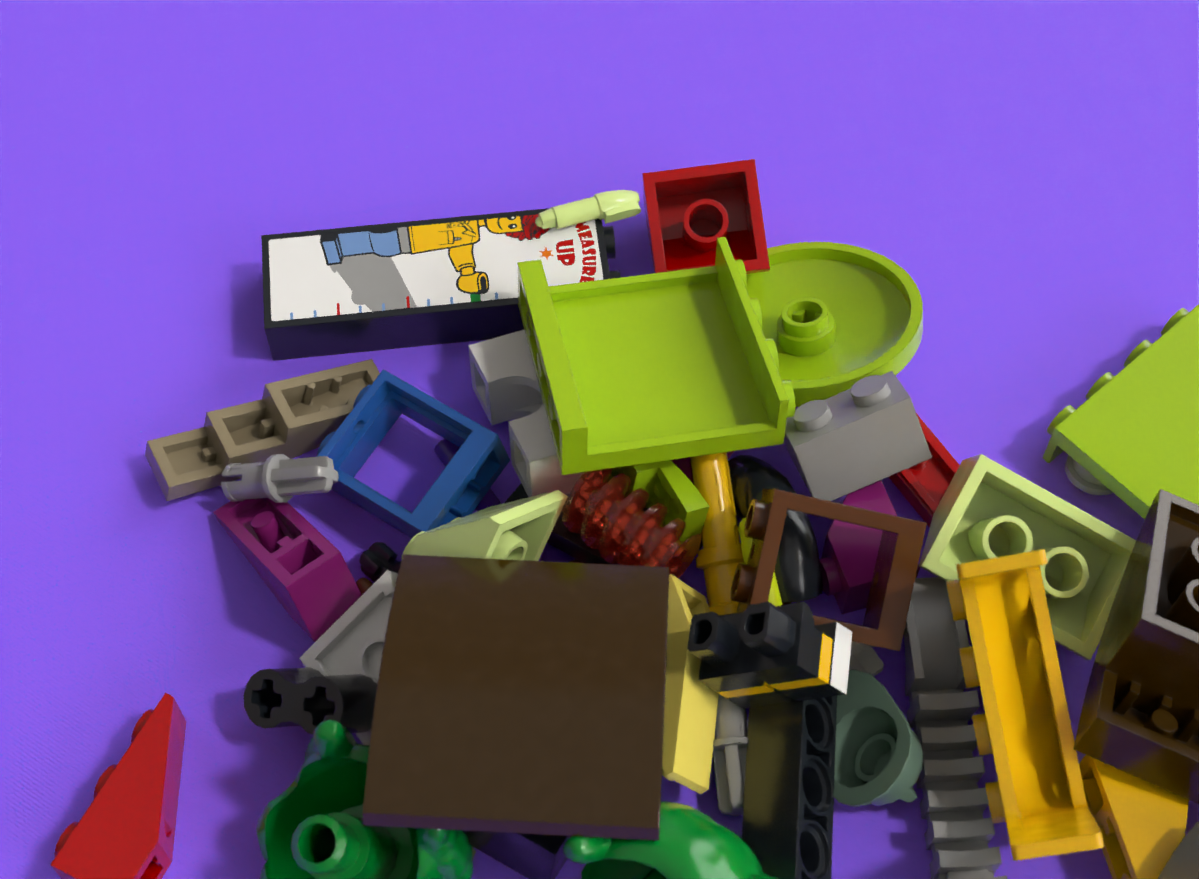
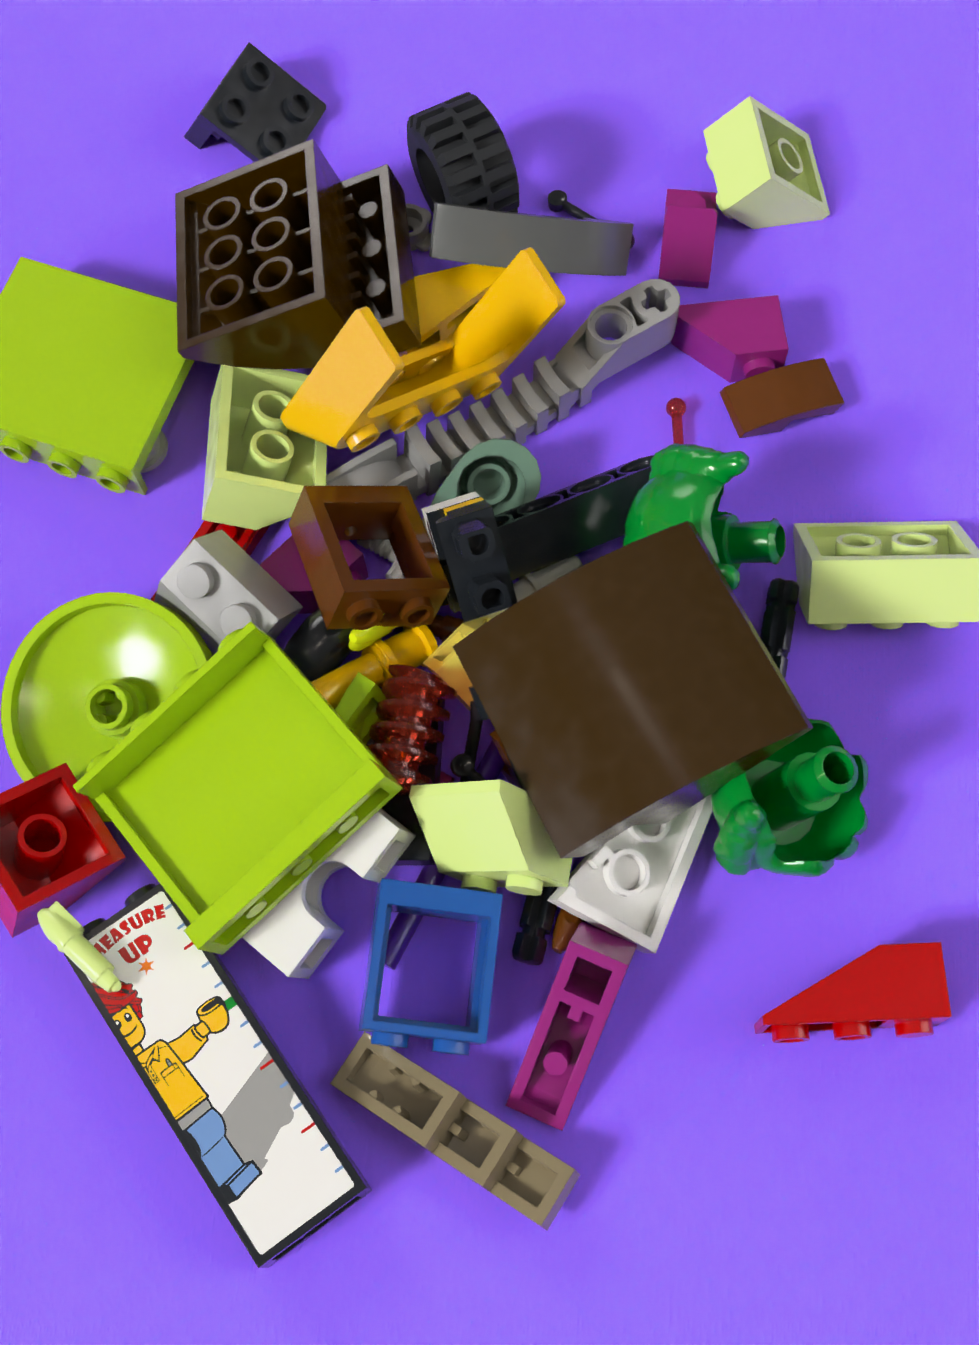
camera: 115 degrees left, 10 degrees up
(279, 478) = (514, 1065): light grey axle -> none
(308, 698) = (694, 903): black axle -> none

